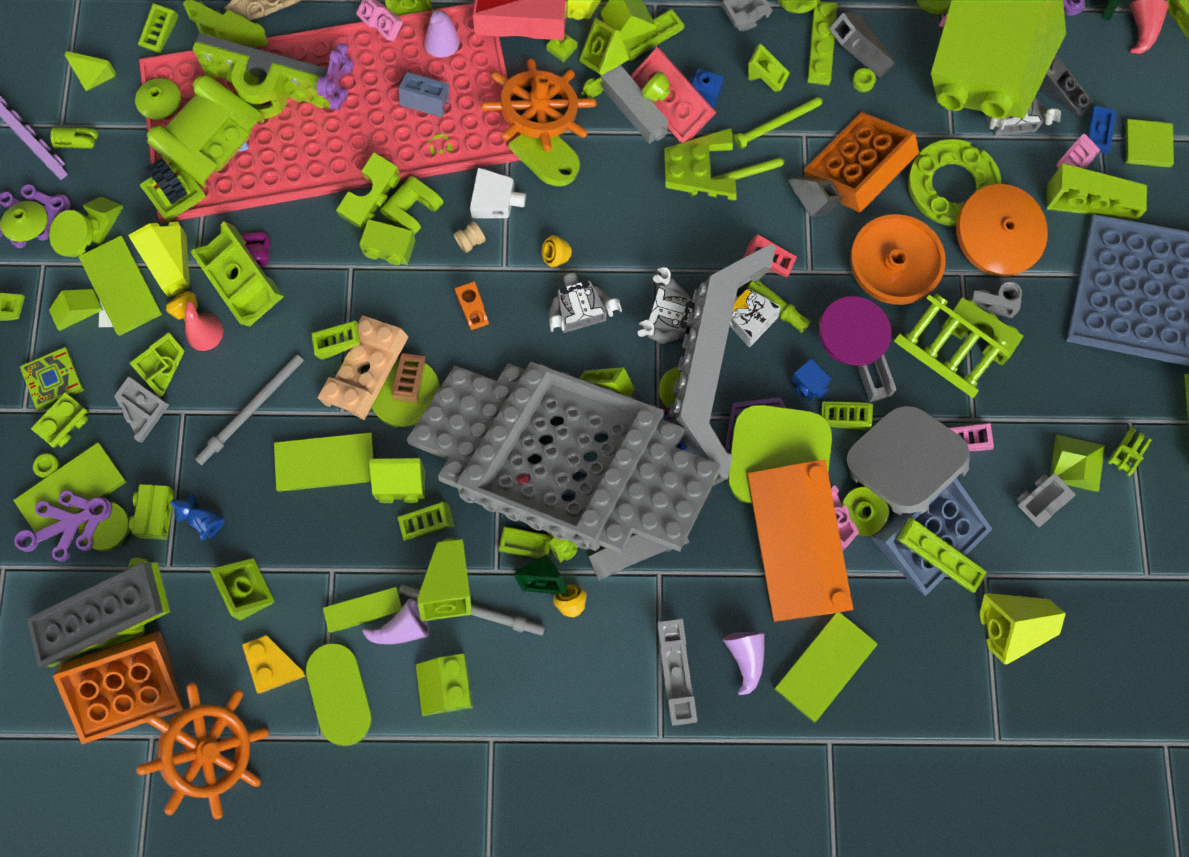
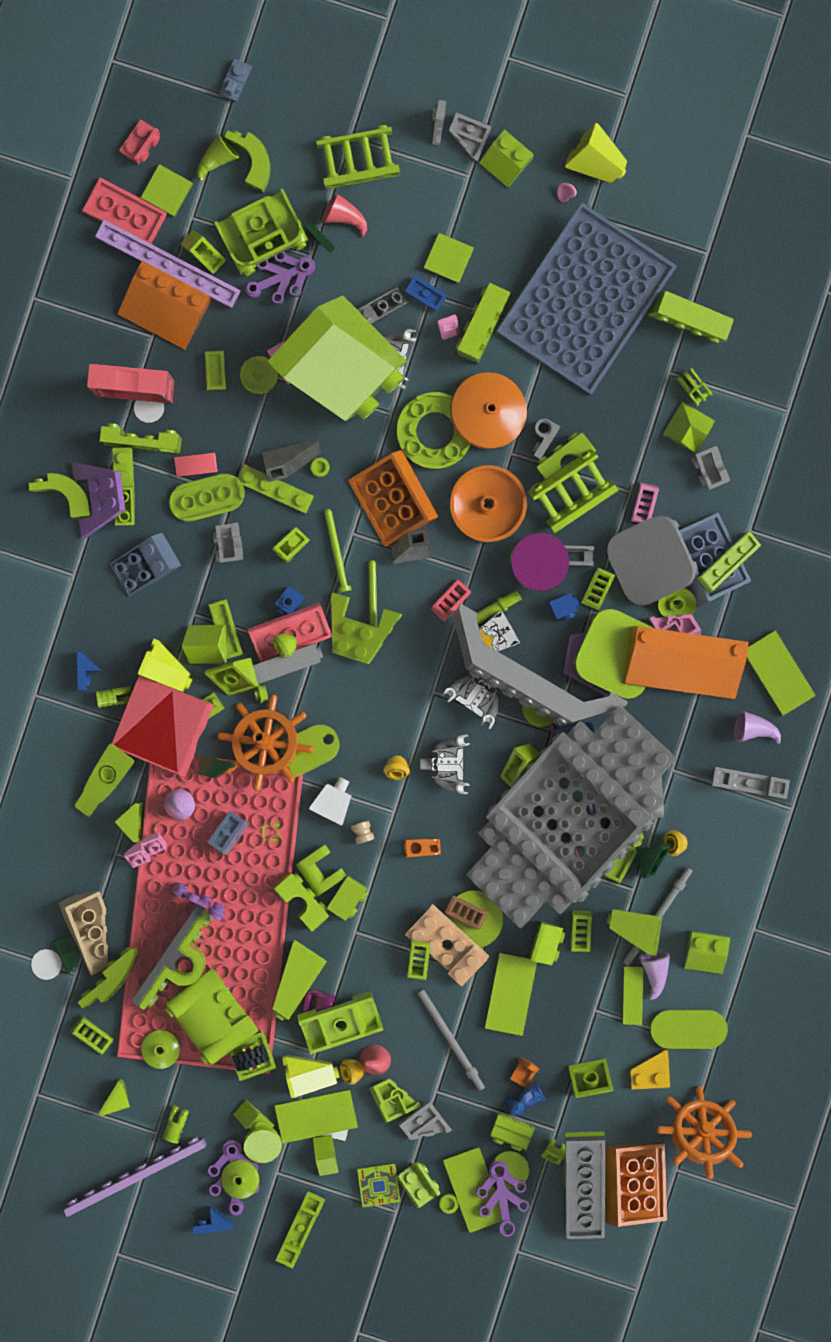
camera: 70 degrees left, 15 degrees up
(232, 506) = (524, 1072): none -> orange tile
(276, 213) = (298, 976): none -> lime slope
(494, 59) = (213, 767): none -> dark green tile
(1019, 624) = (794, 523): neon yellow slope -> none

